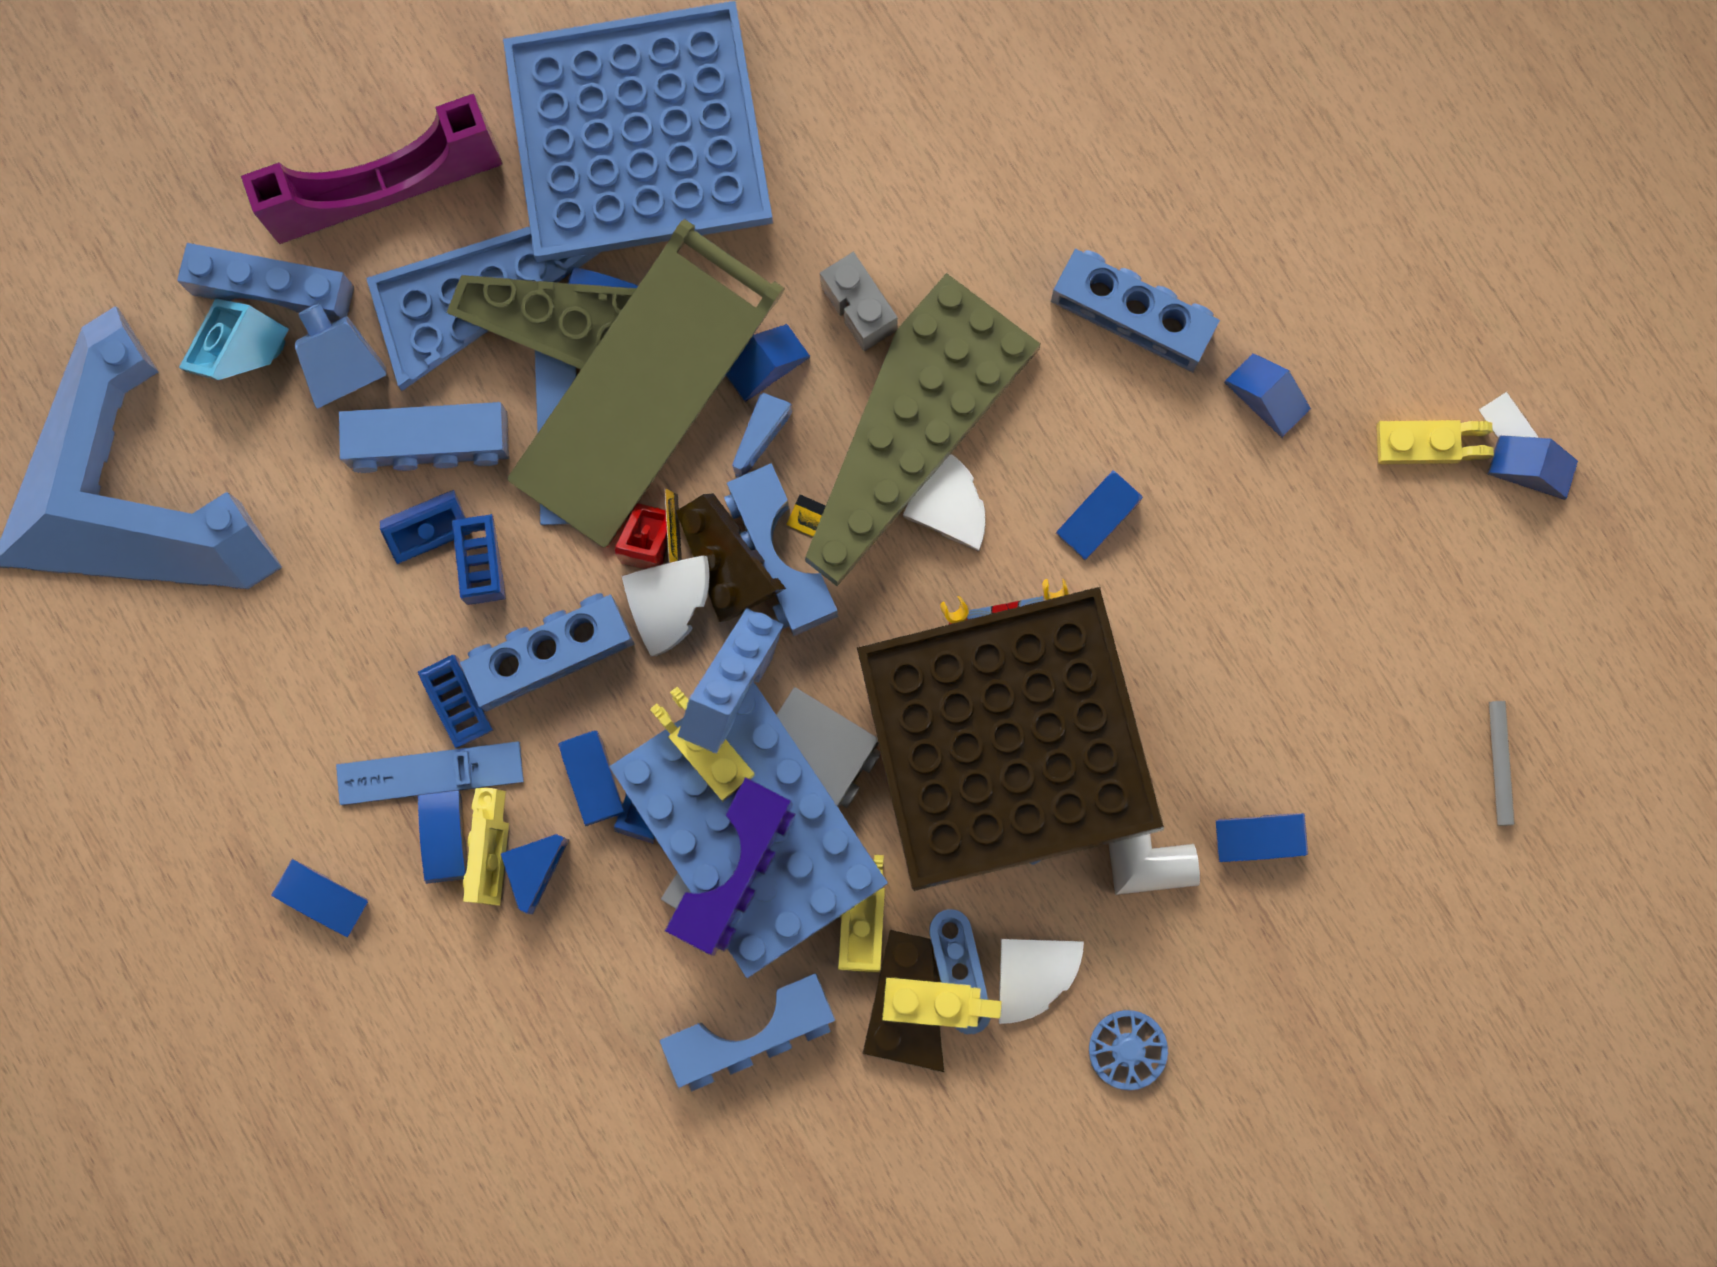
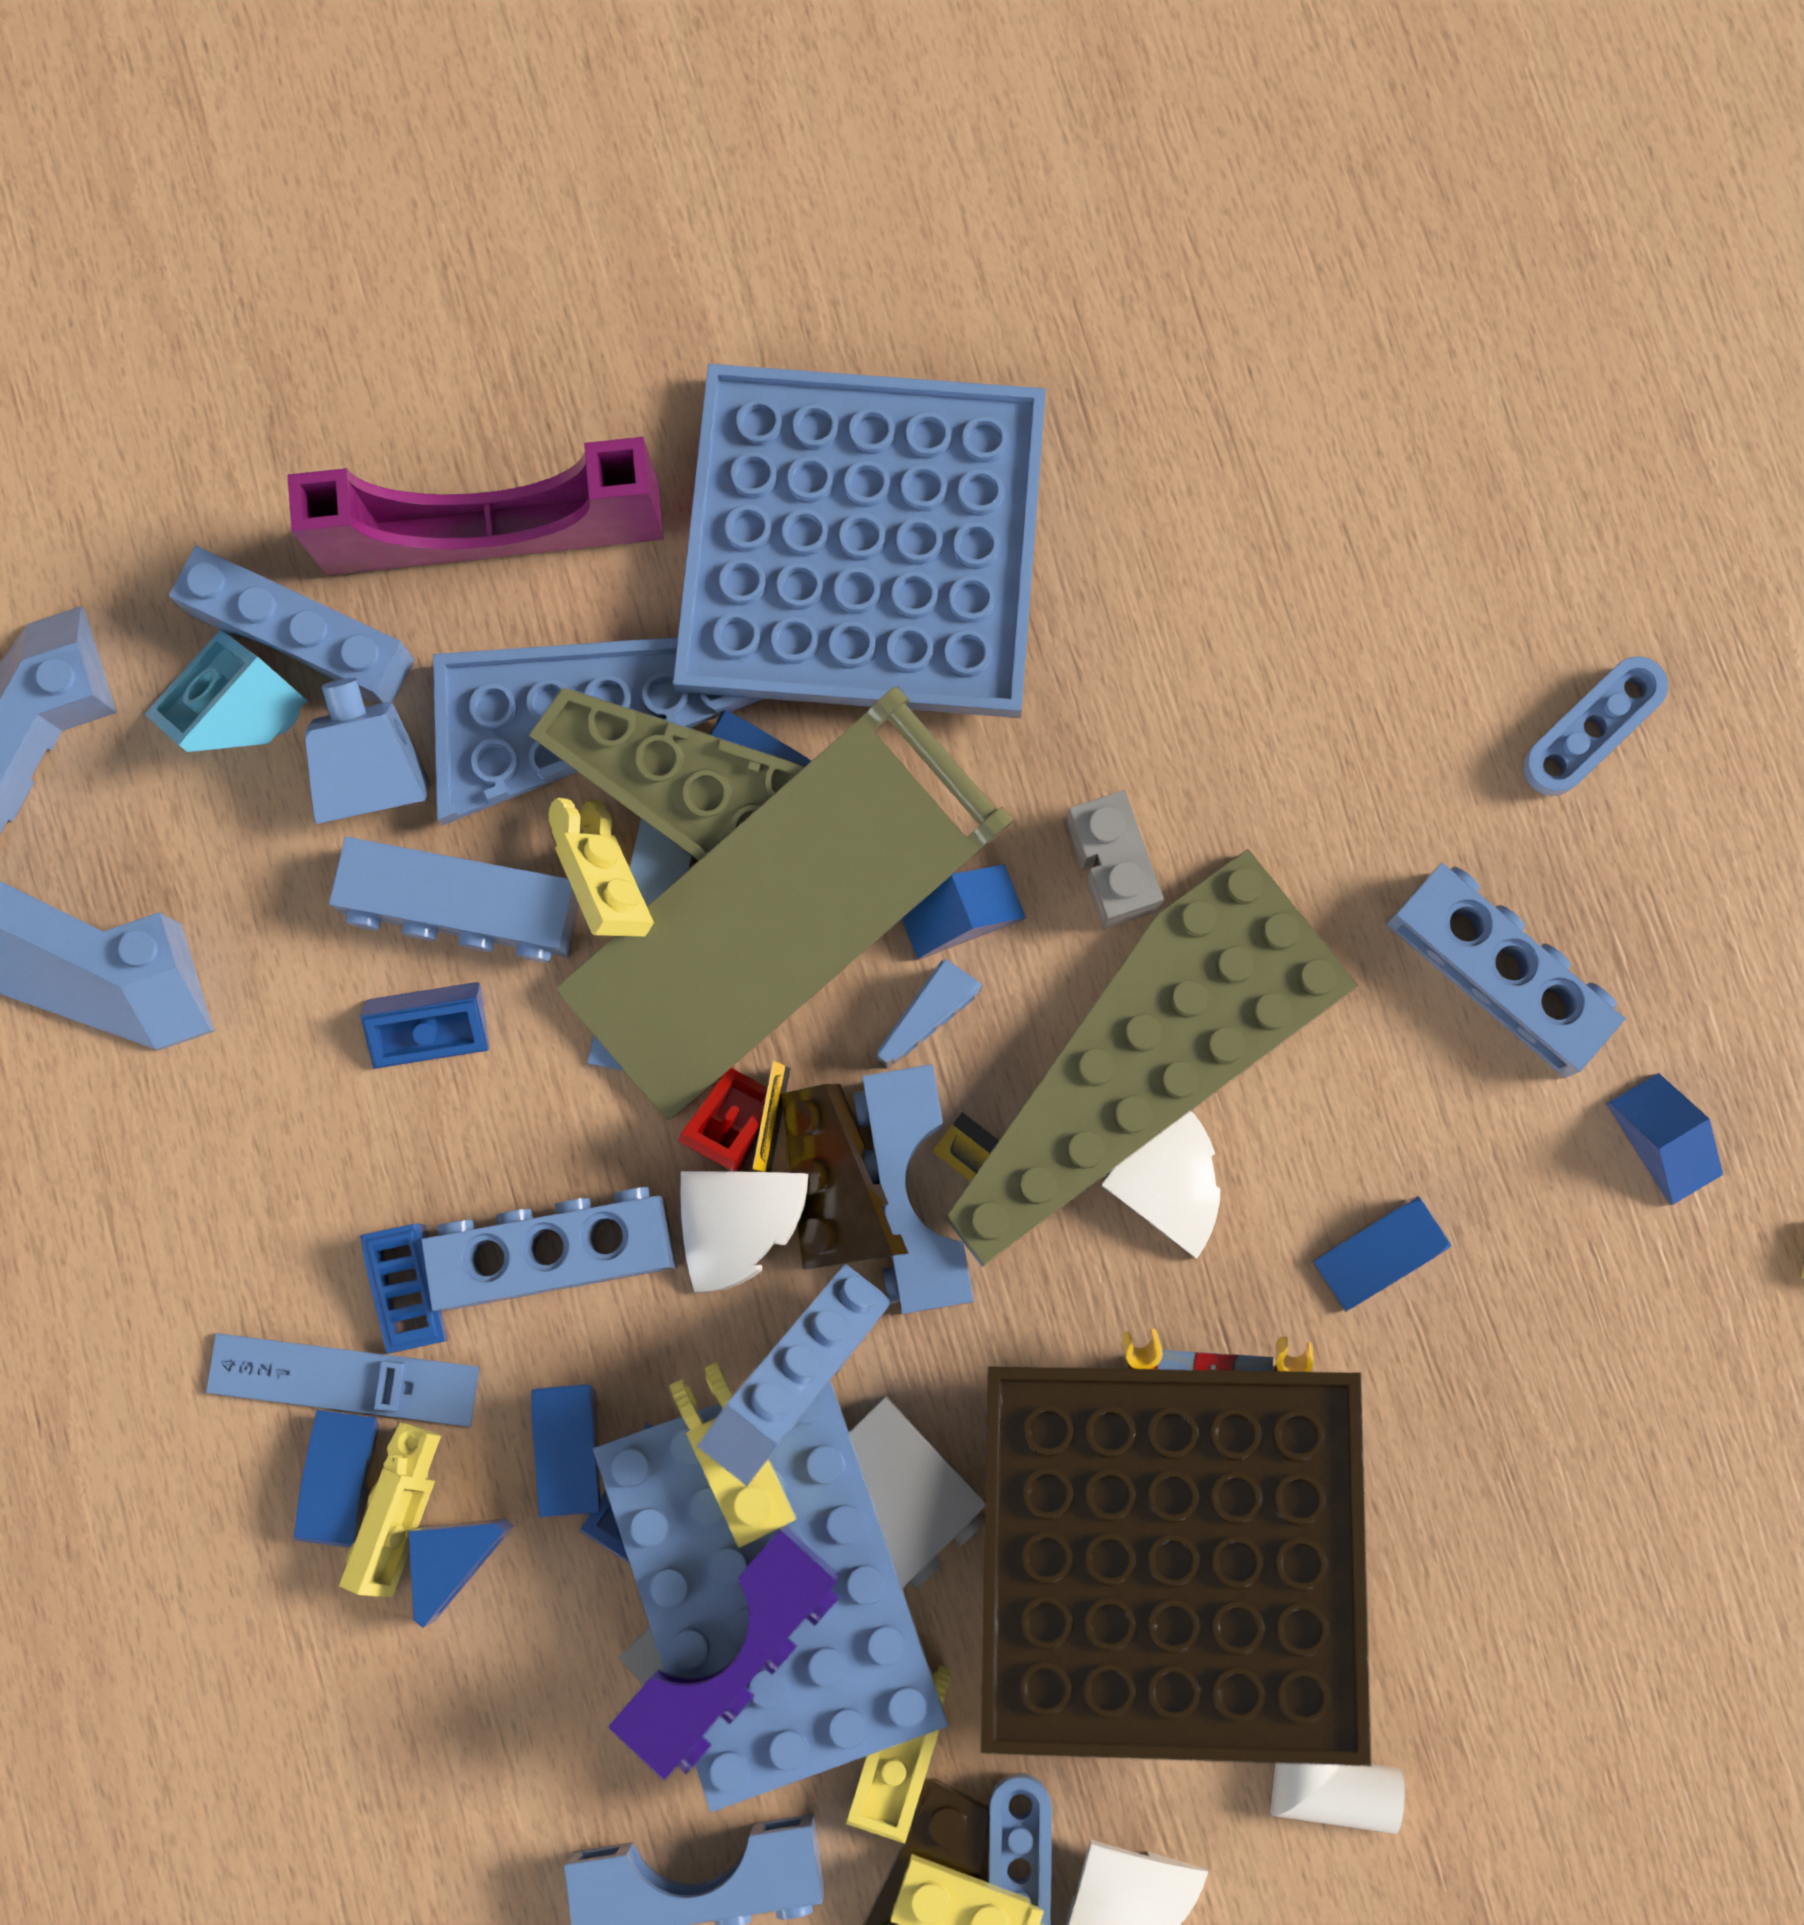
camera: 15 degrees right, 0 degrees up
(319, 897) = (142, 1522): blue slope -> none
(482, 594) = (465, 1090): blue slope -> none
(515, 391) = (598, 869): none -> light yellow hinge
(1158, 121) = (1611, 711): none -> medium blue plate
(1262, 837) = (1504, 1791): blue slope -> none

